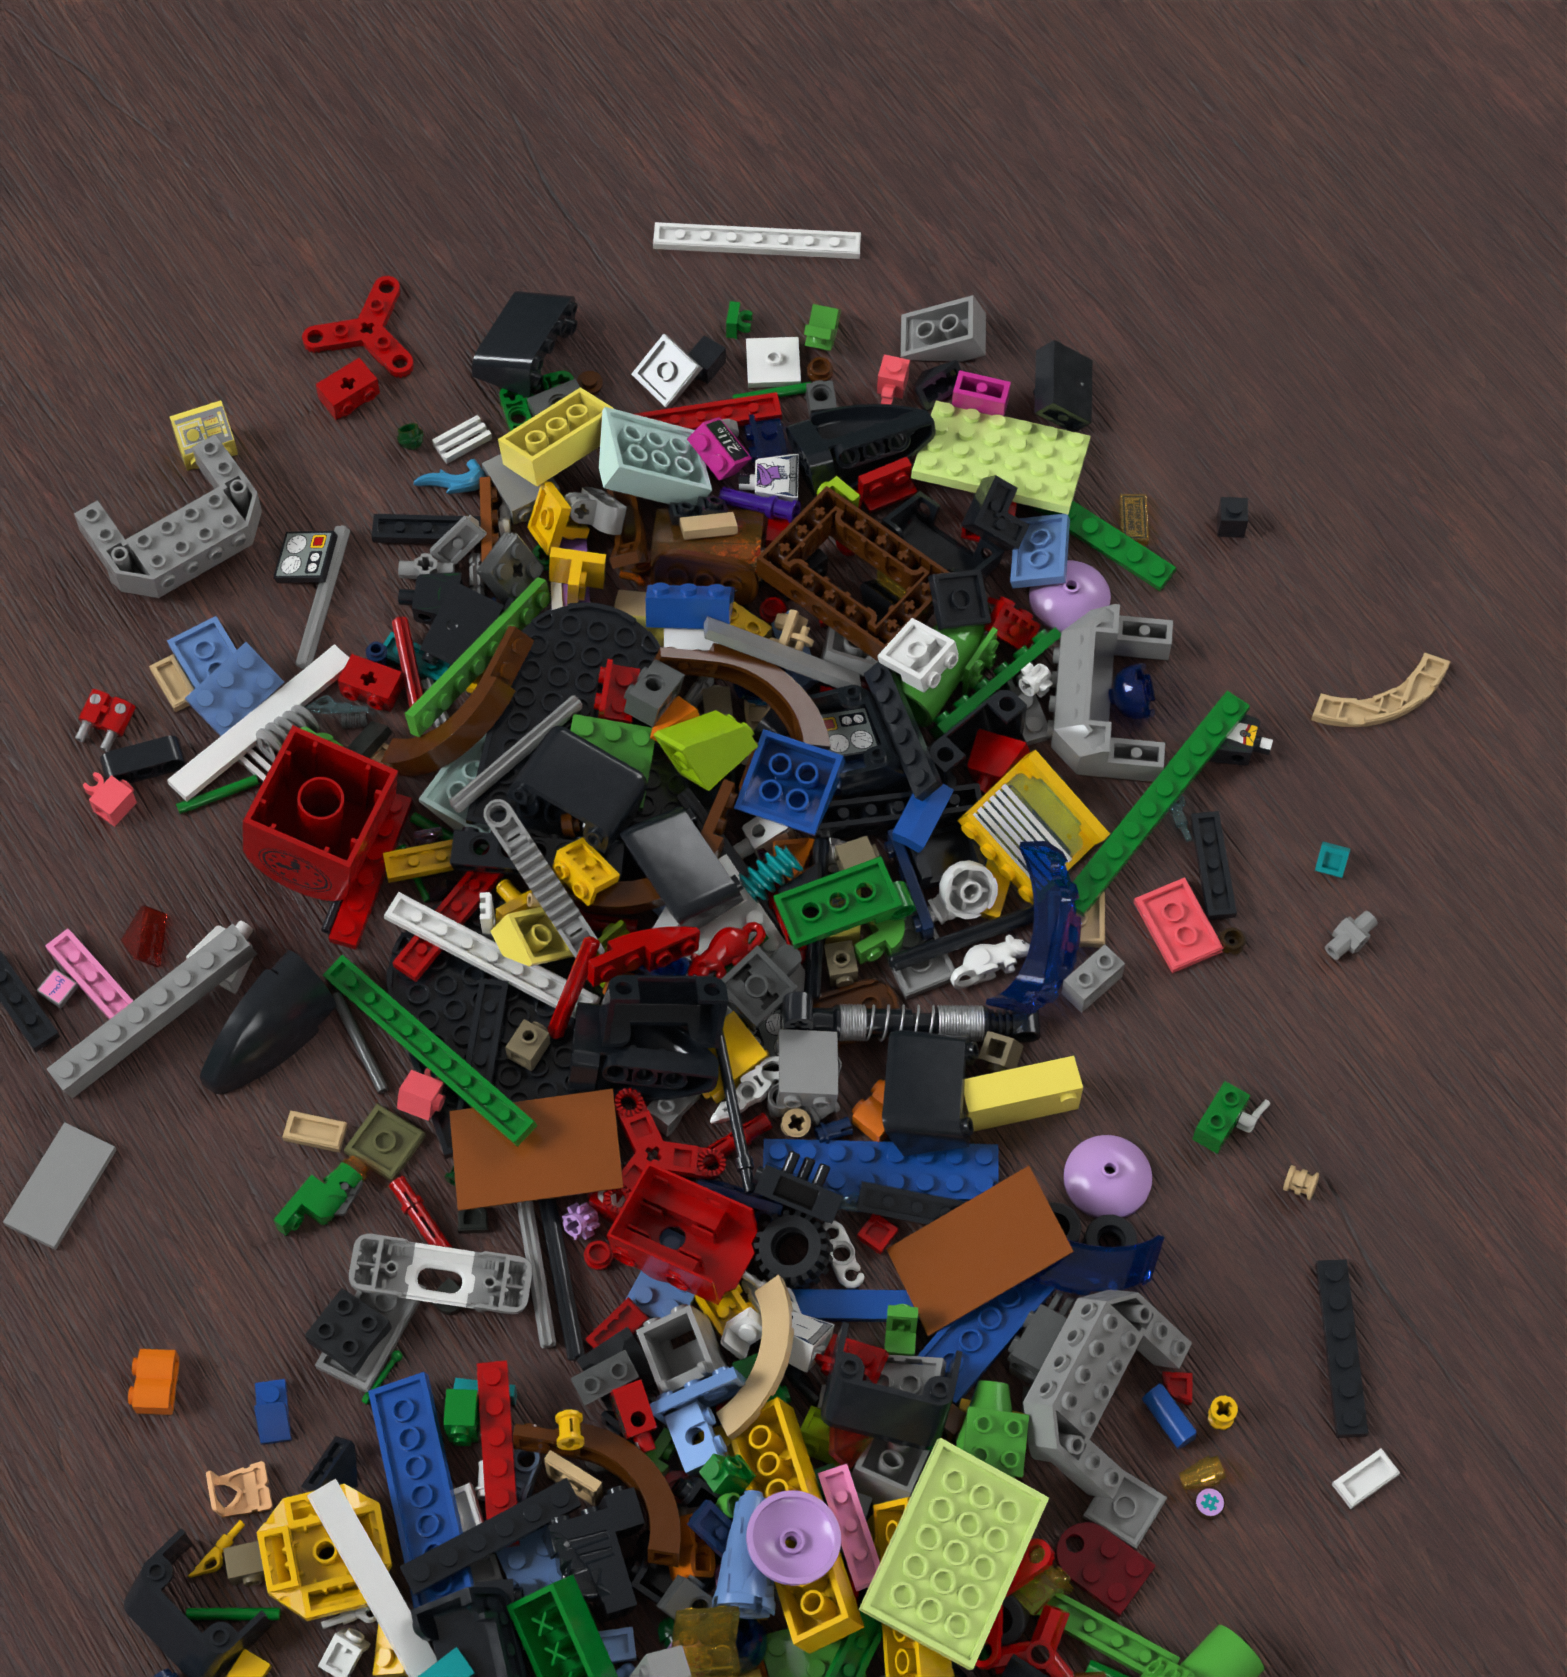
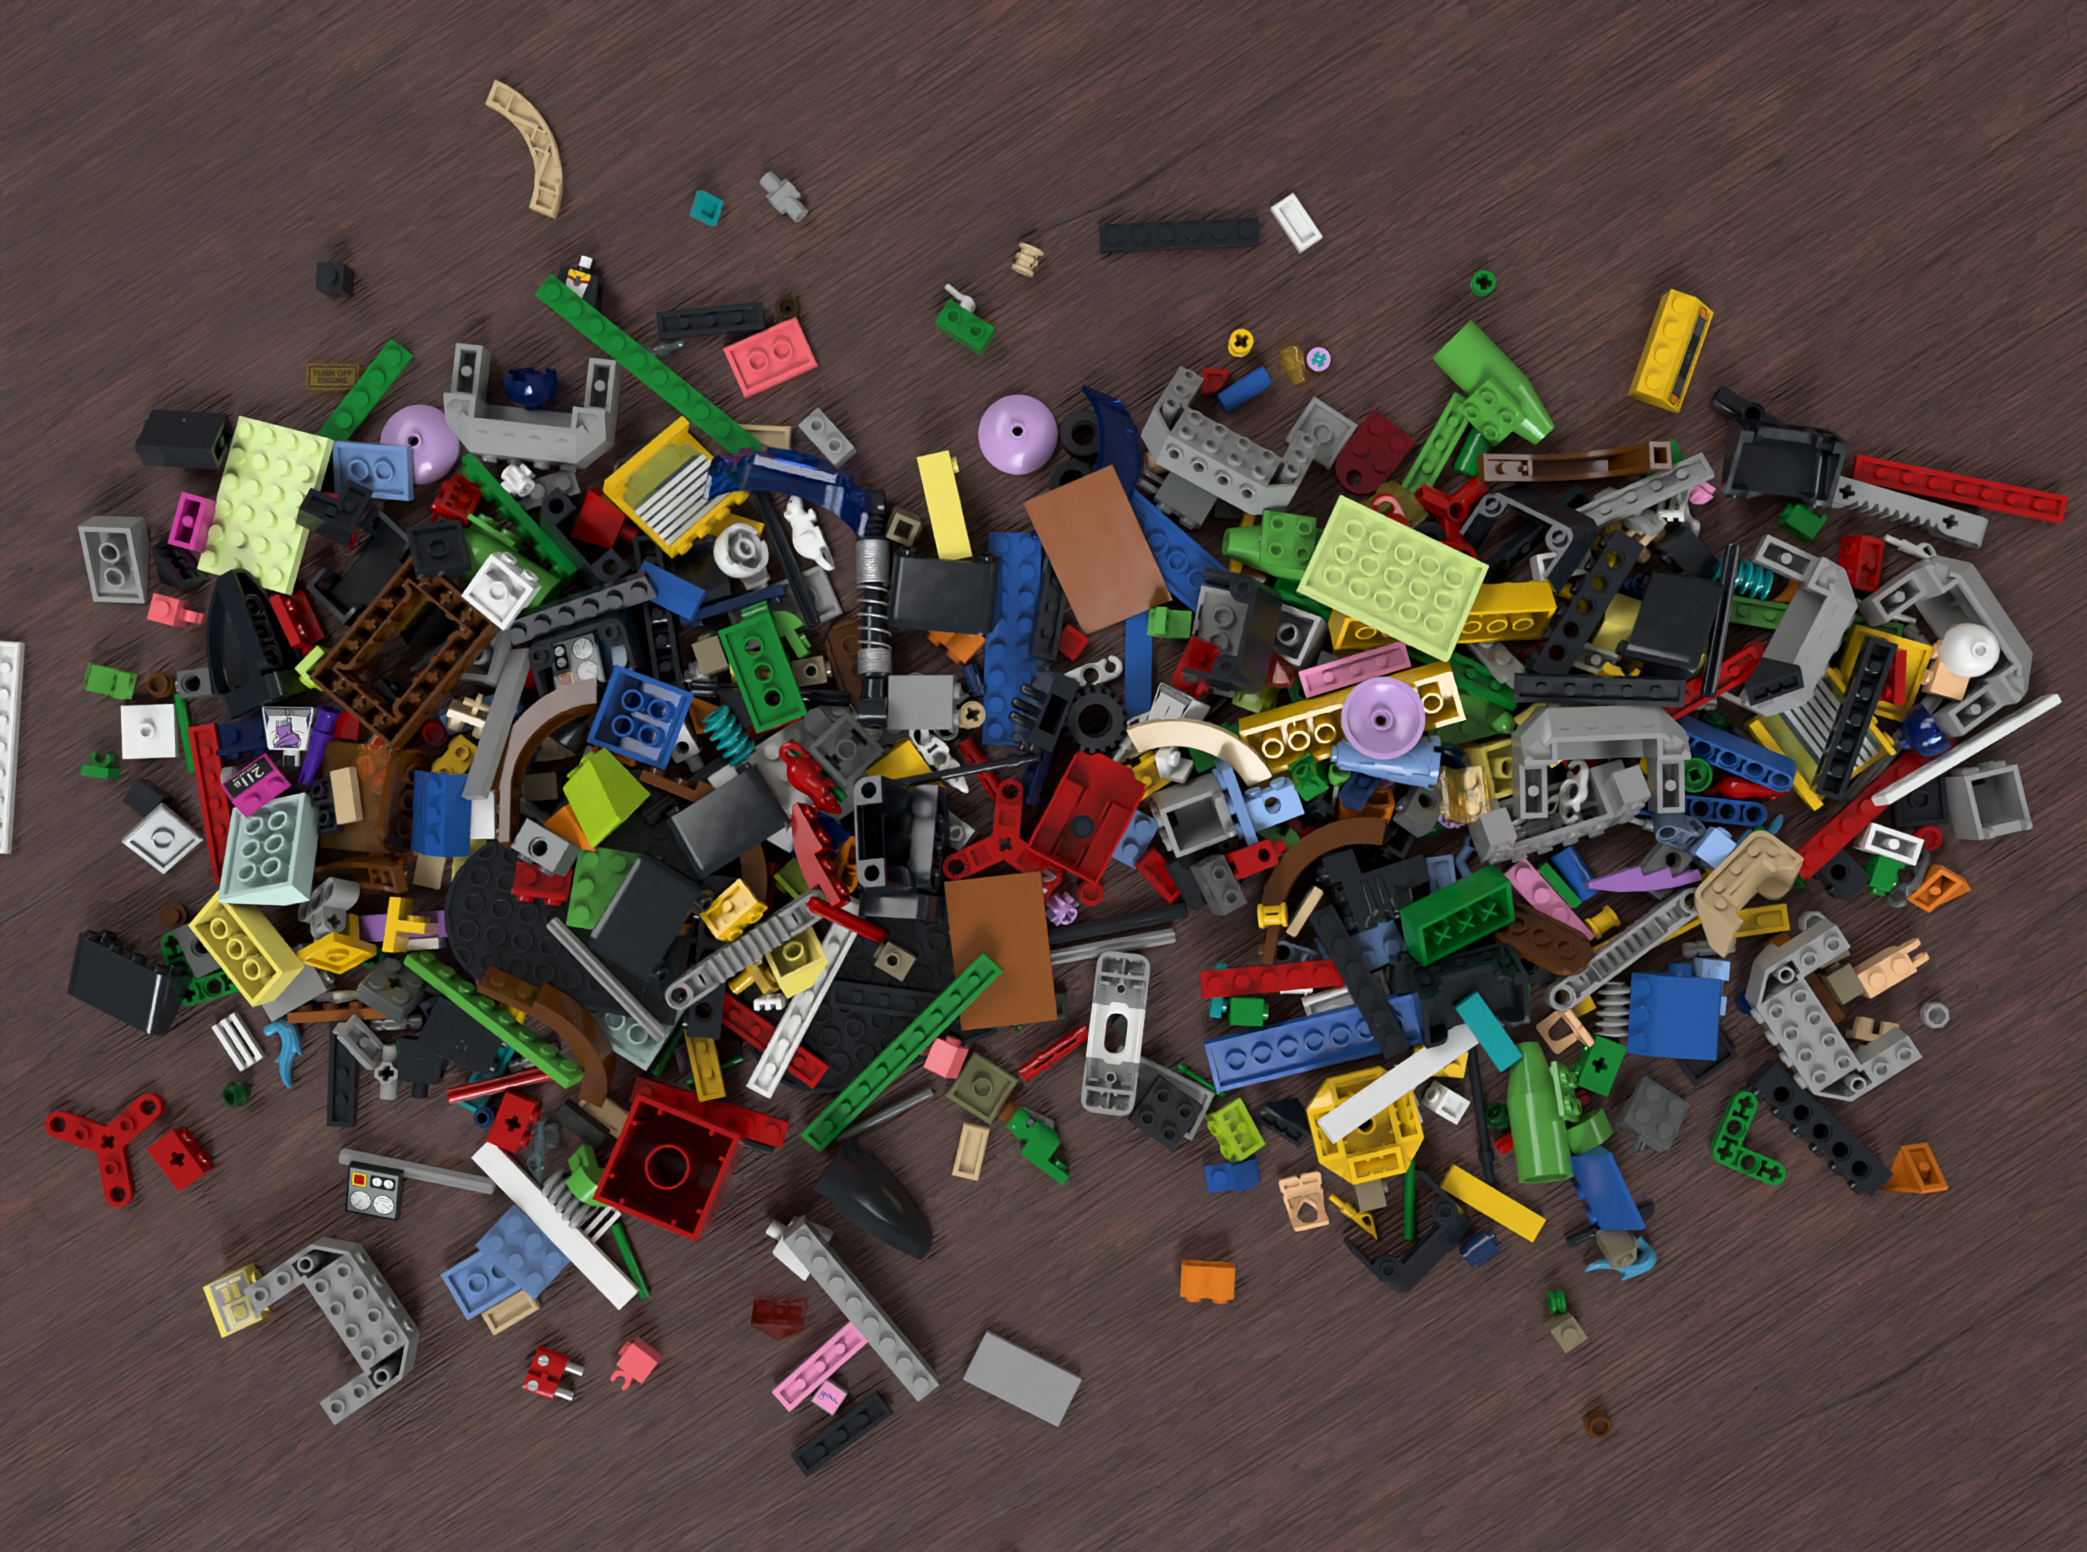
camera: 90 degrees left, 25 degrees up
(144, 760) = (596, 1334): black beam -> none
(323, 1412) = (1234, 1131): none -> lime bracket

